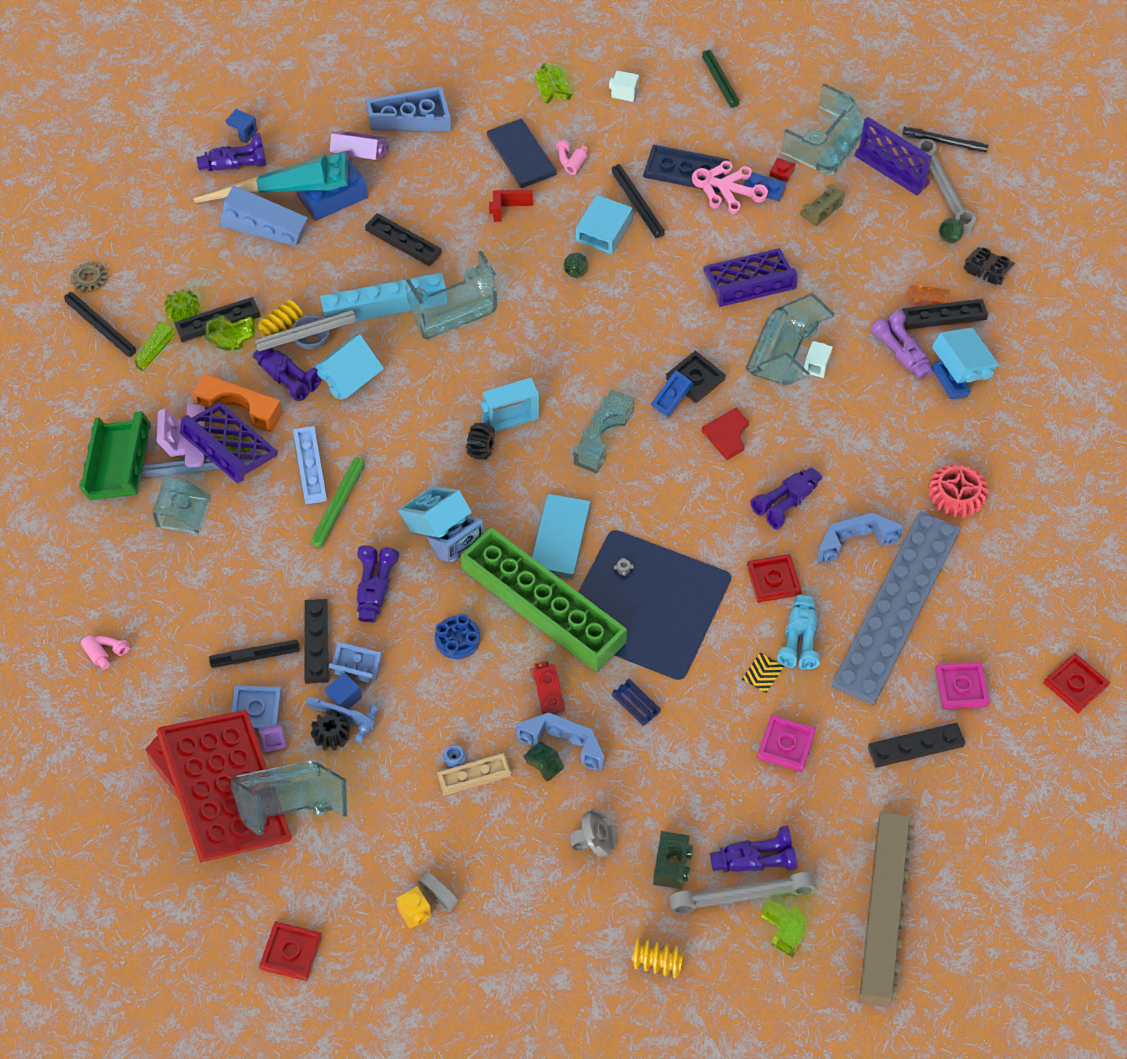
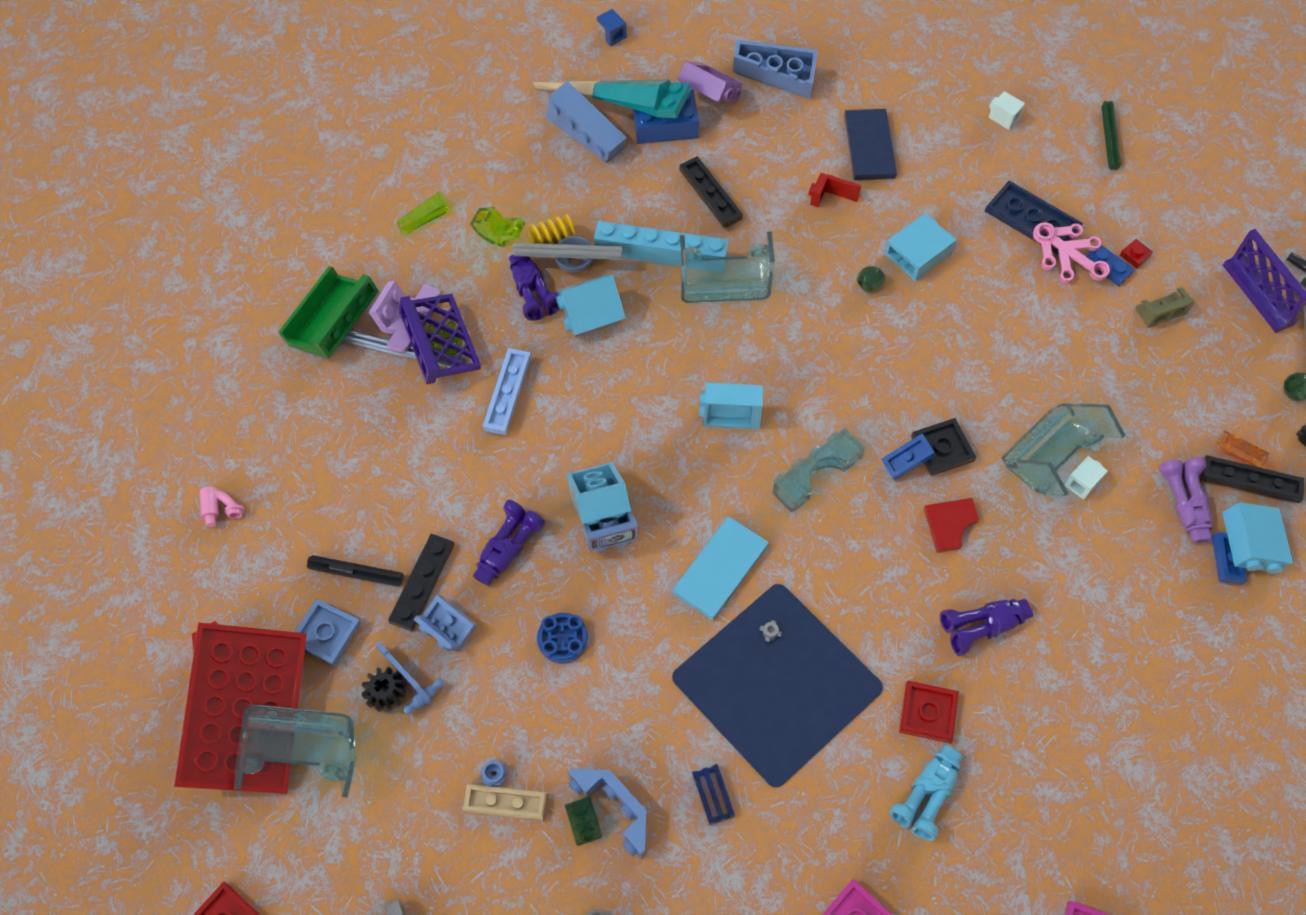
camera: 25 degrees right, 5 degrees up
(80, 280) = (391, 126): dark tan gear -> none
(100, 324) = (386, 175): black axle -> none
(180, 505) = (363, 385): clear light blue slope -> none
(181, 305) = (468, 184): clear neon green gear -> none
(196, 325) = (466, 208): black plate -> none
(228, 157) = (583, 54): dark purple piece -> none
(263, 409) = (489, 317): orange arch -> none
(272, 738) = (324, 672): medium lavender tile -> none
(337, 502) = (515, 441): bright green axle -> none
(344, 691) = (416, 653): blue panel -> none
(480, 441) = (684, 432): black gear -> none
(544, 599) = (668, 637): bright green brick -> none
(548, 687) = (626, 736): red bracket -> none
(553, 83) = (934, 83): clear neon green bracket -> none
(576, 160) = (923, 169): bright pink plant -> none
(638, 201) = (967, 235): black axle -> none
(752, 287) = (1050, 369): dark purple fence -> none
(763, 672) = (868, 819): sticker -> none
(830, 149) = (1197, 250): clear light blue windscreen -> none
(885, 531) = (1077, 706): medium blue slope -> none
(896, 608) = (1052, 807): sand blue plate -> none
(945, 493) = (1199, 694): coral gear -> none

